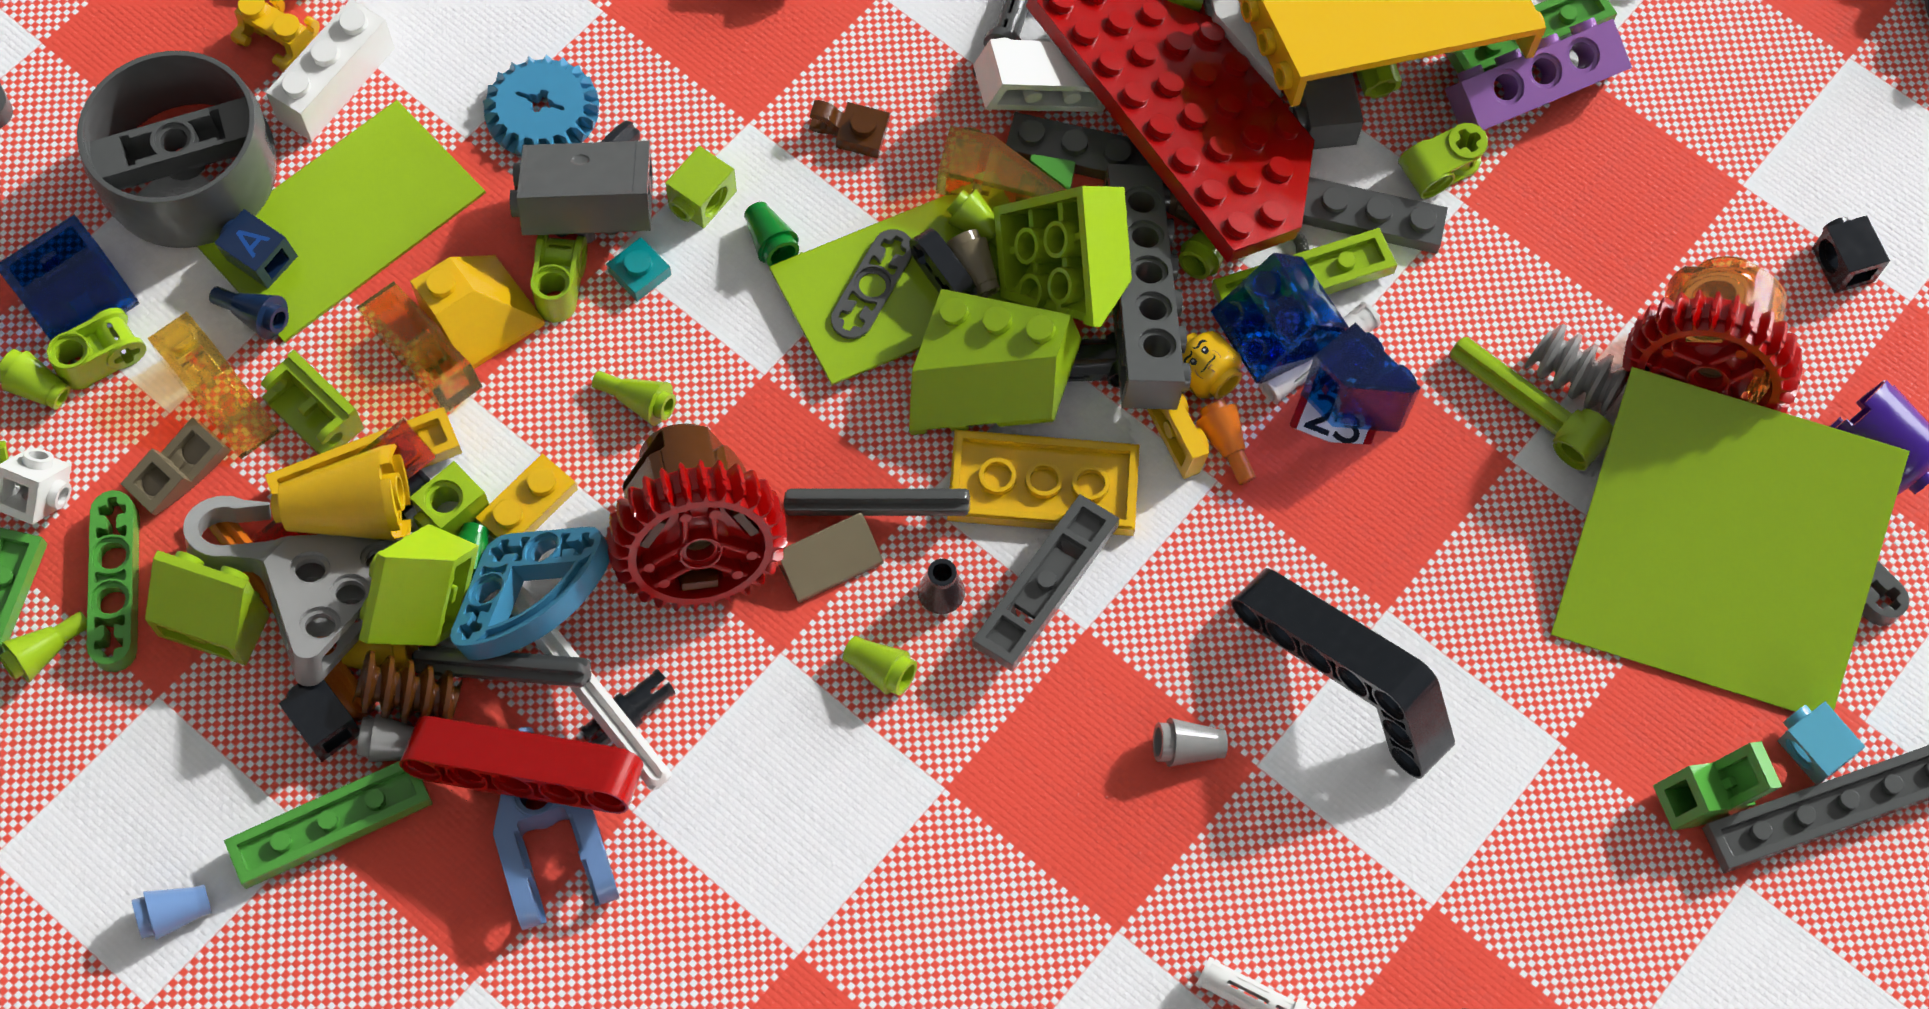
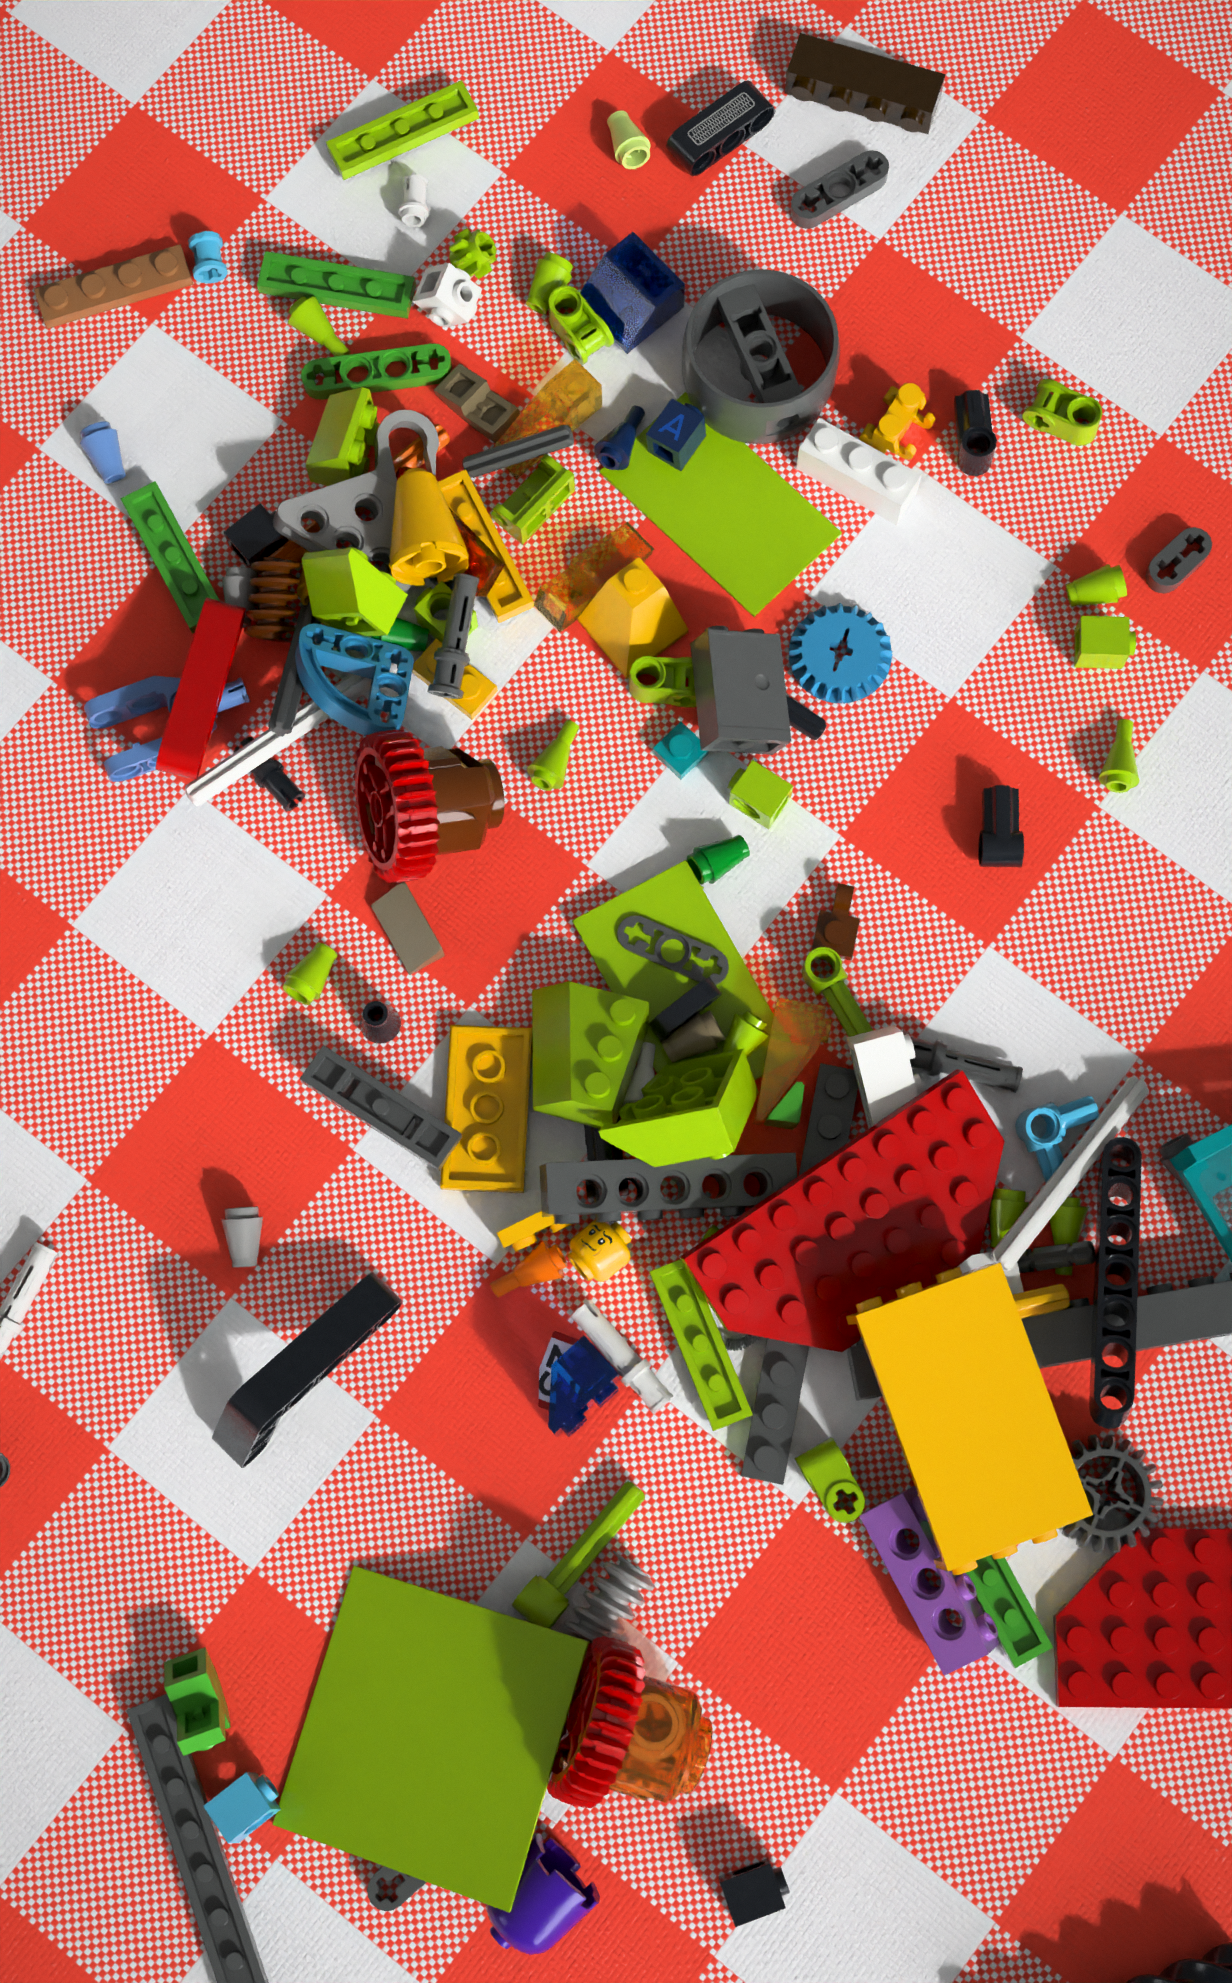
camera: 95 degrees right, 10 degrees up
(251, 413) = (518, 451): none -> dark grey axle
(508, 483) = (452, 656): none -> dark grey pin
(877, 502) = (457, 964): dark grey axle -> none
(925, 129) = (836, 991): none -> lime axle
(1278, 317) = (640, 1312): clear blue slope -> none

